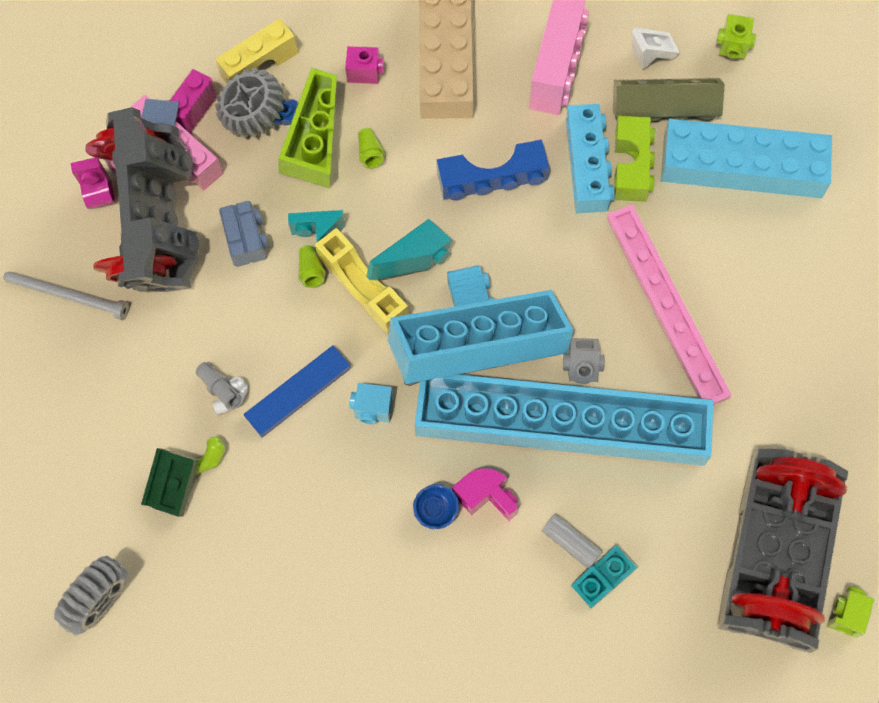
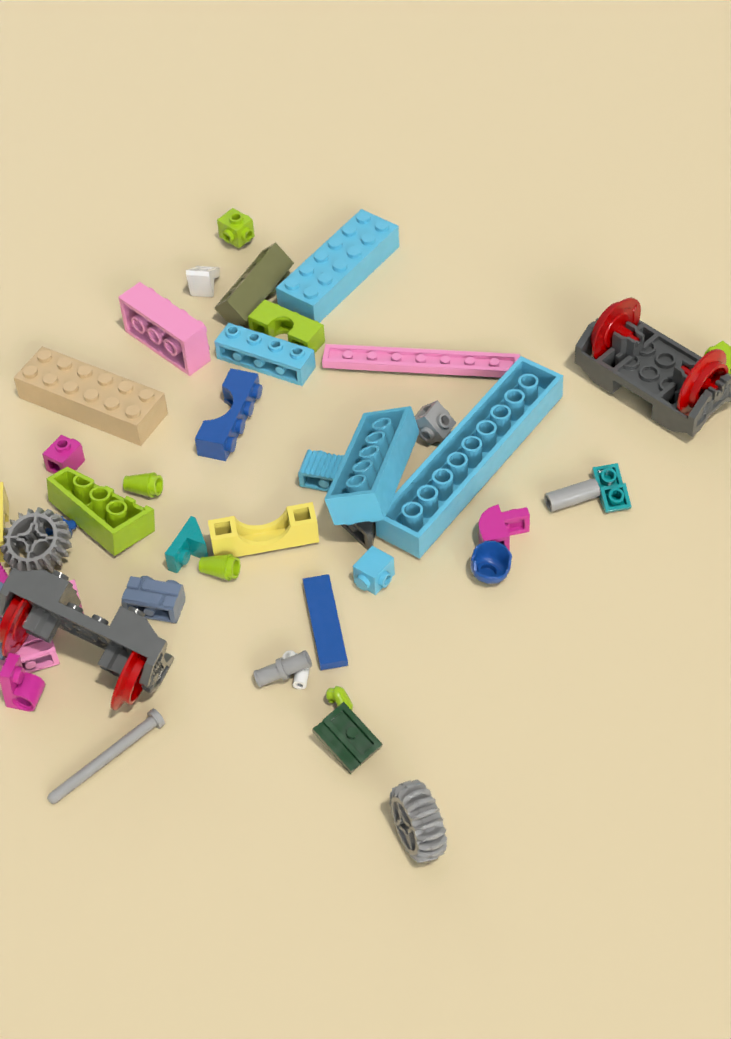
camera: 60 degrees left, 20 degrees down
(412, 253) = (264, 486): teal slope -> none

